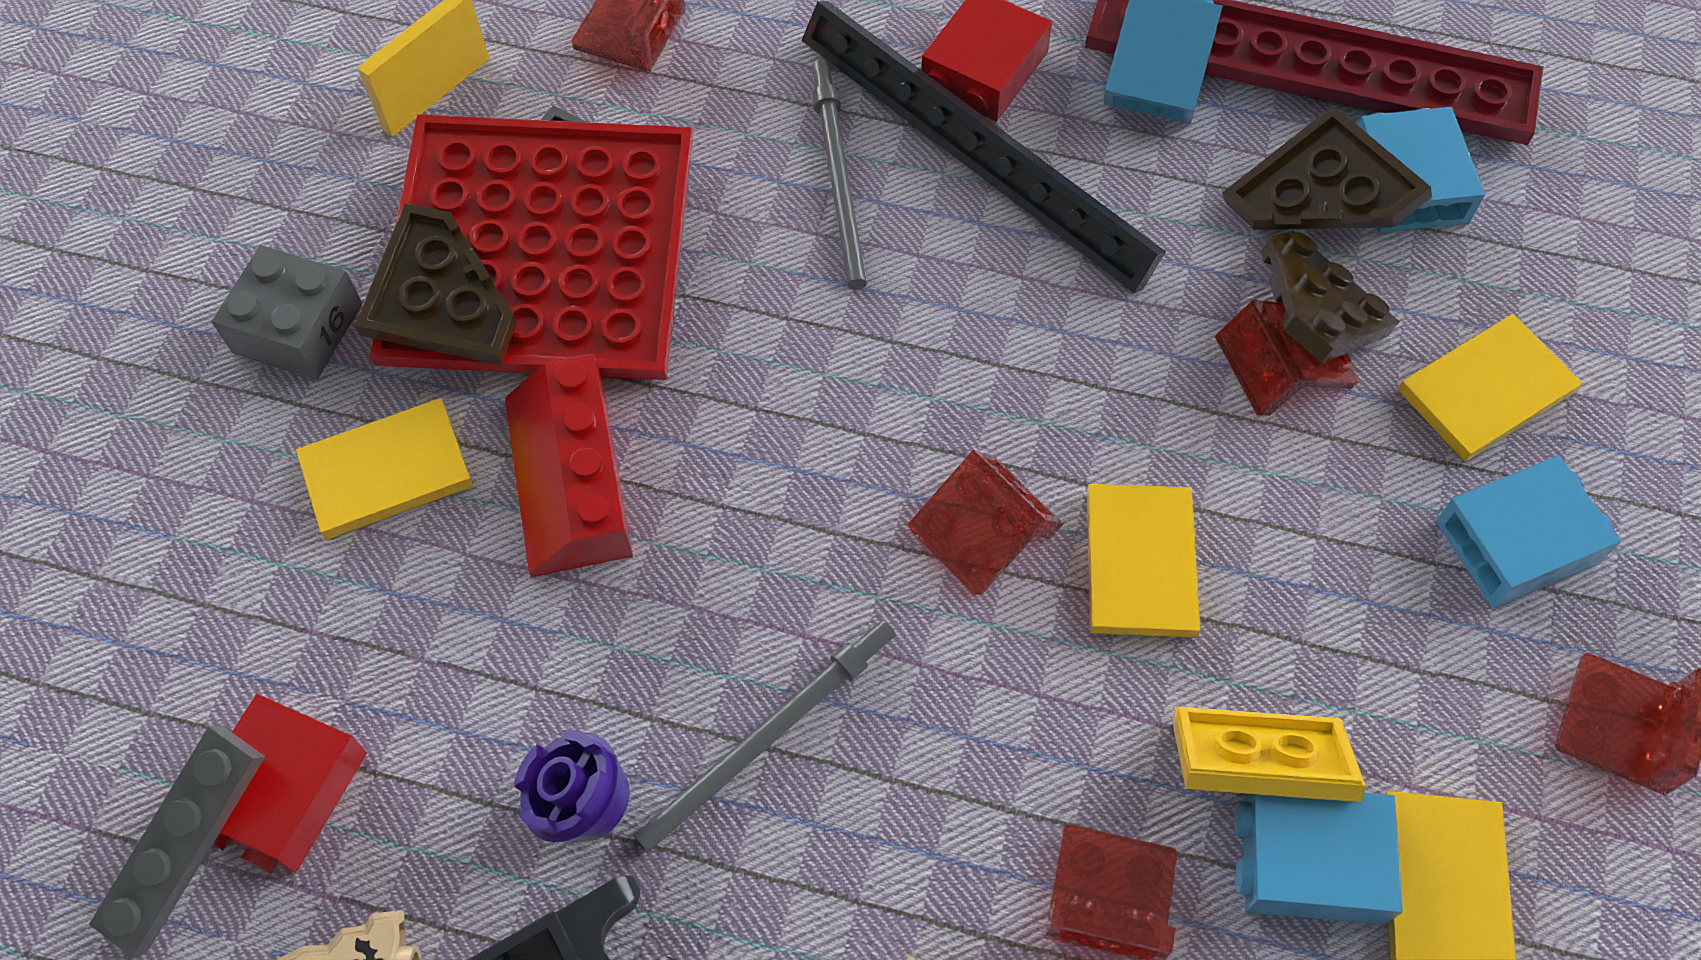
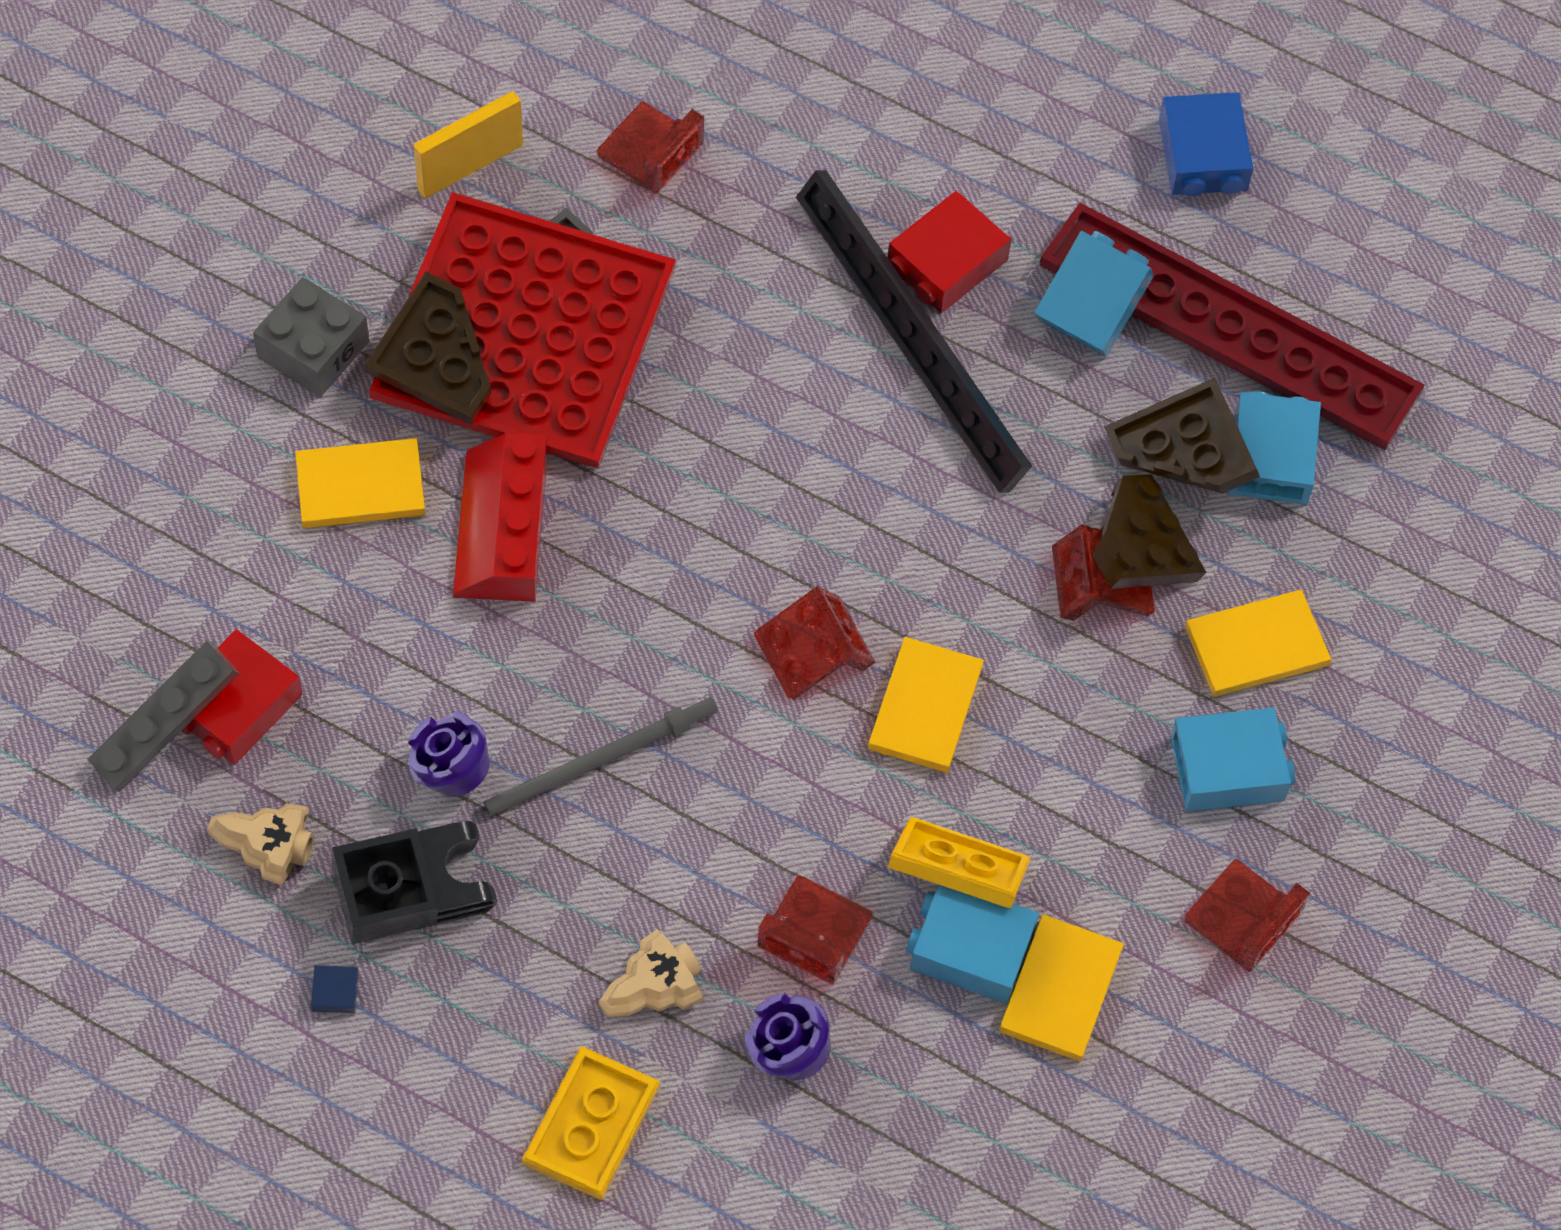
camera: 10 degrees right, 0 degrees up
(827, 104) = (799, 262): dark grey bar -> none

